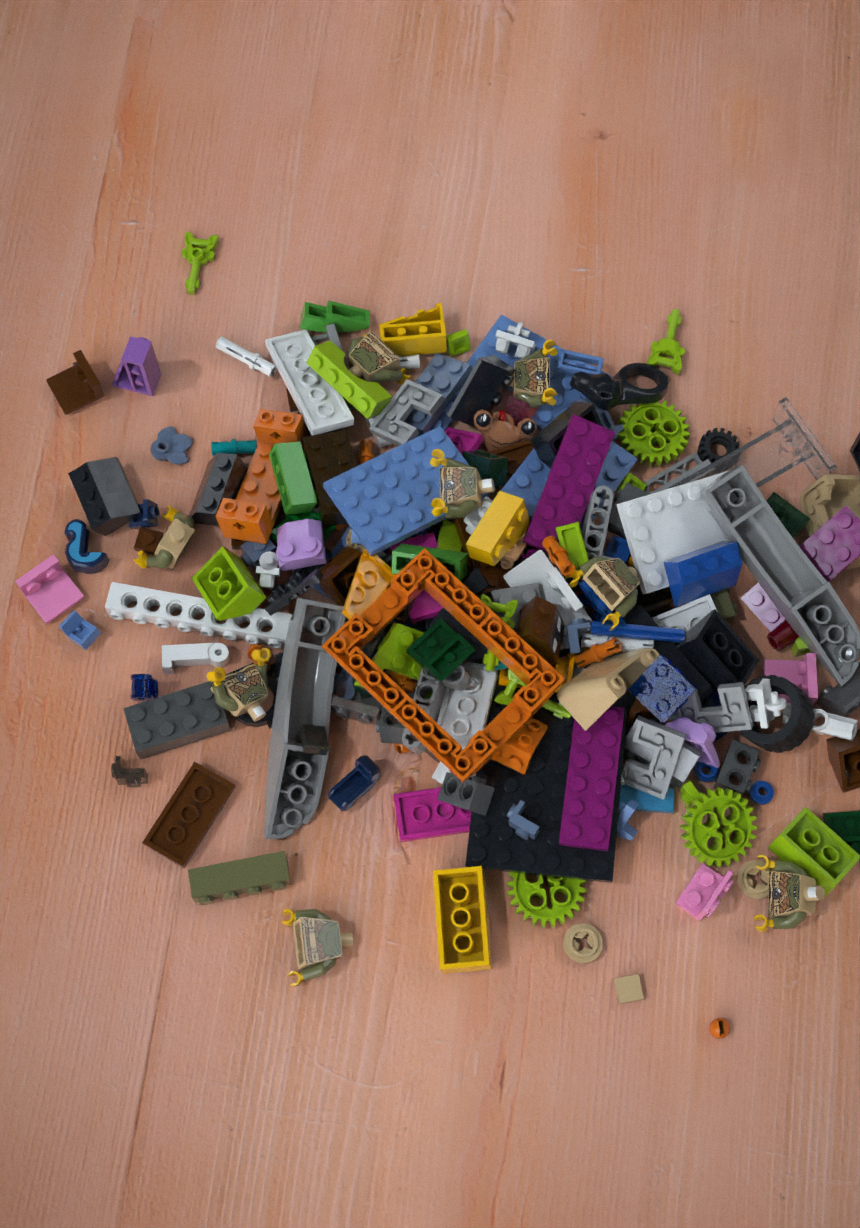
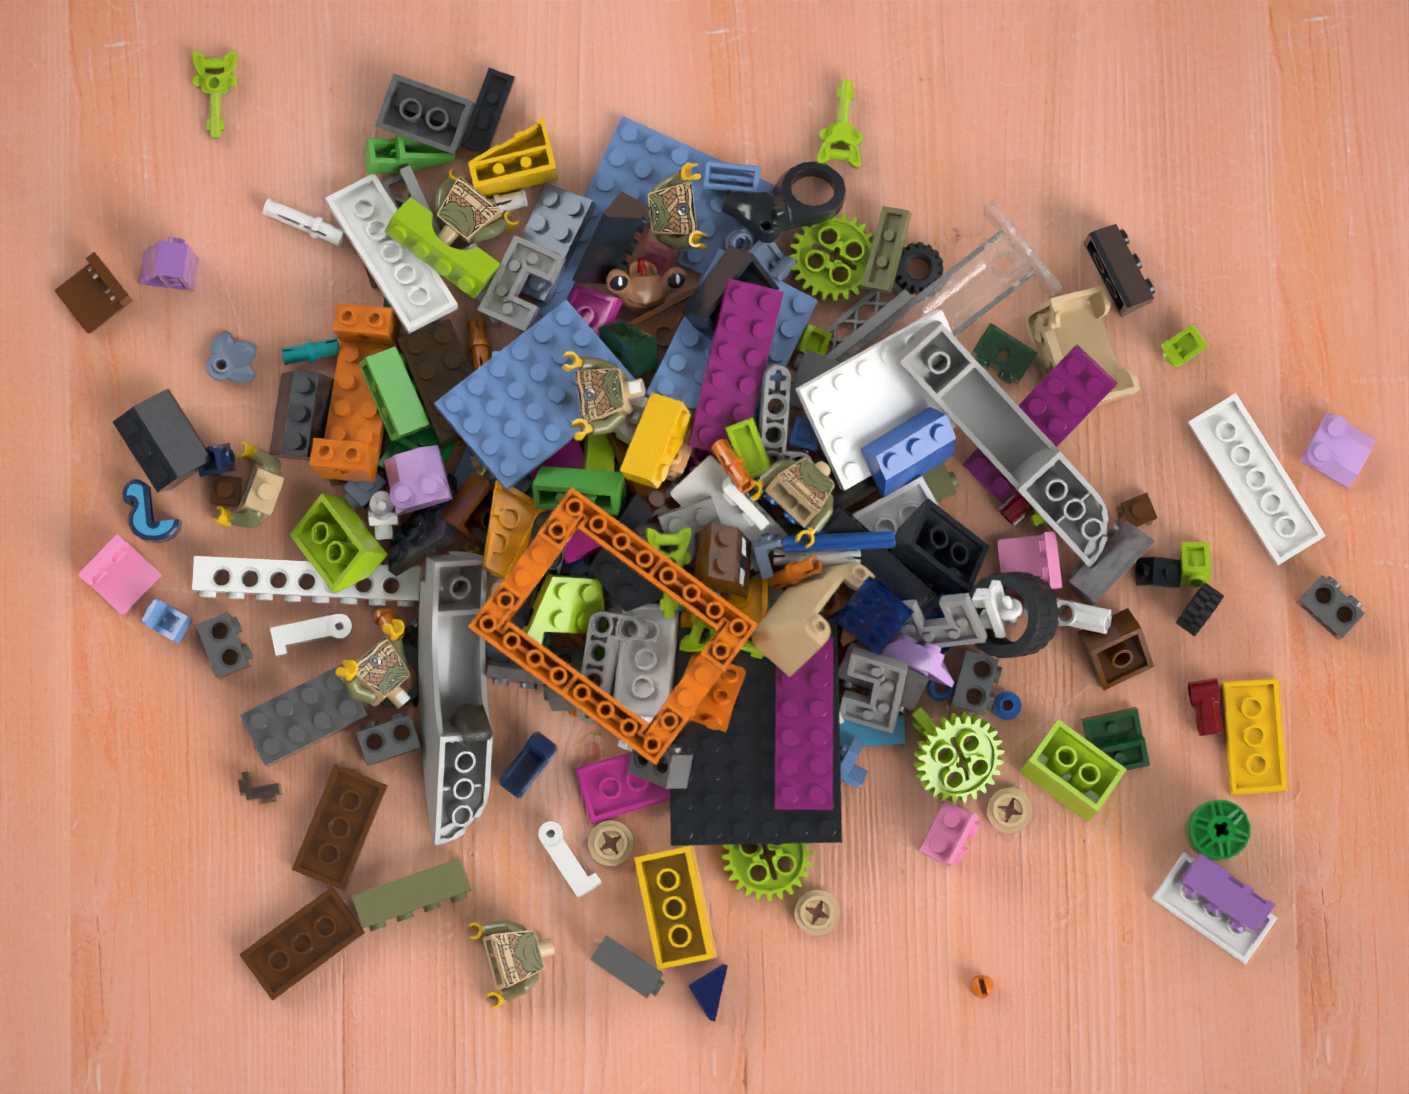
camera: 10 degrees left, 15 degrees up
(118, 657) = (218, 648): none -> dark grey brick
(139, 907) = (302, 943): none -> reddish brown plate
(144, 687) = (259, 686): clear blue piece -> none
(243, 755) = (391, 746): none -> dark grey brick
(352, 289) = (425, 114): none -> flat silver slope
(366, 851) = (552, 838): none -> white leg
(400, 296) = (487, 111): none -> black plate
(414, 964) = (628, 967): none -> dark grey brick
(418, 849) = (597, 840): none -> tan gear
(440, 650) = (607, 603): dark green slope -> none
(458, 342) = (572, 165): lime plate -> none
(481, 995) = (709, 990): none -> clear blue slope
(504, 339) = (656, 163): white hips -> none
(523, 827) = (732, 797): sand blue bracket -> none
(628, 989) = (874, 957): tan tile -> none
(629, 675) = (836, 602): none -> reddish brown plate
(696, 428) = (886, 249): none -> olive plate
(790, 895) = (1048, 826): torso -> none

